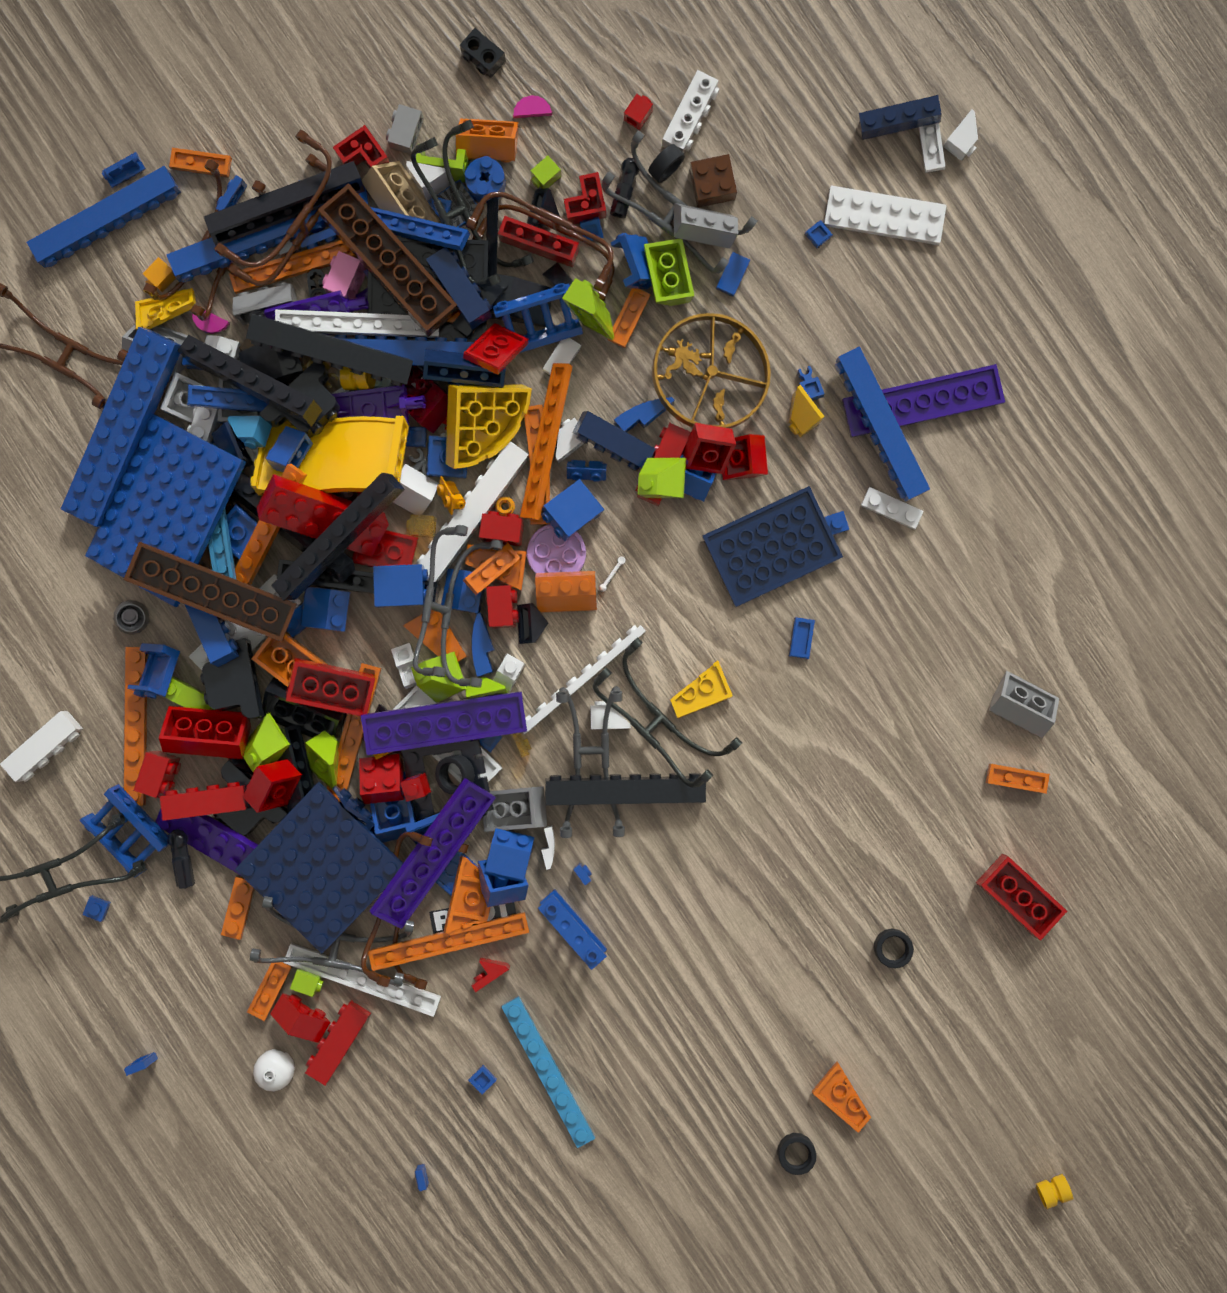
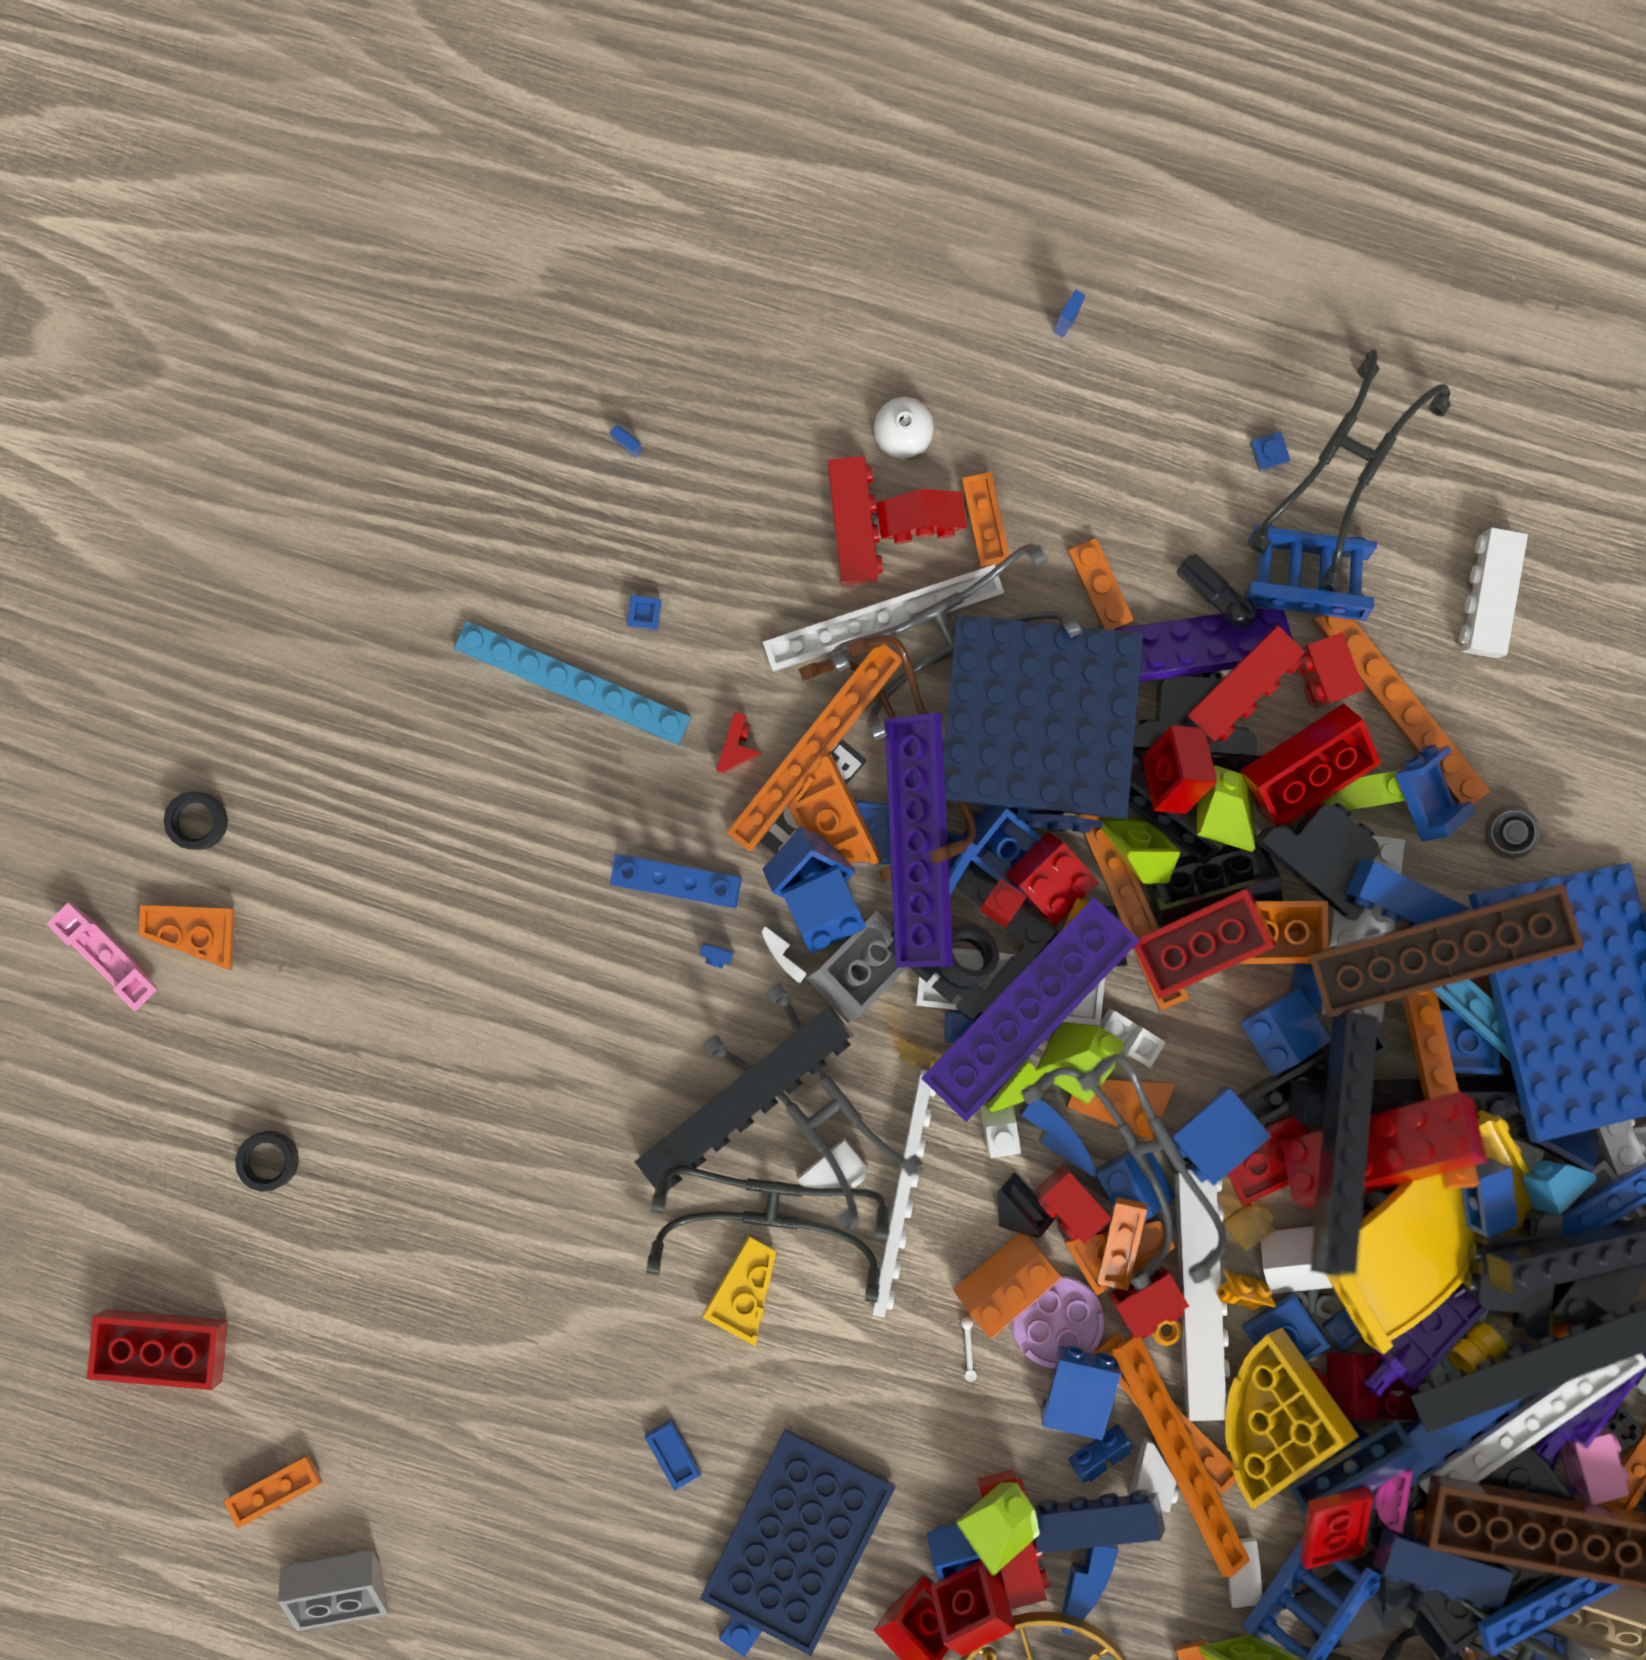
camera: 140 degrees right, 0 degrees up
(306, 983) = (947, 563): lime brick -> none
(456, 340) = (1392, 1500): none -> dark pink tile
(897, 1121) = (104, 954): none -> bright pink slope

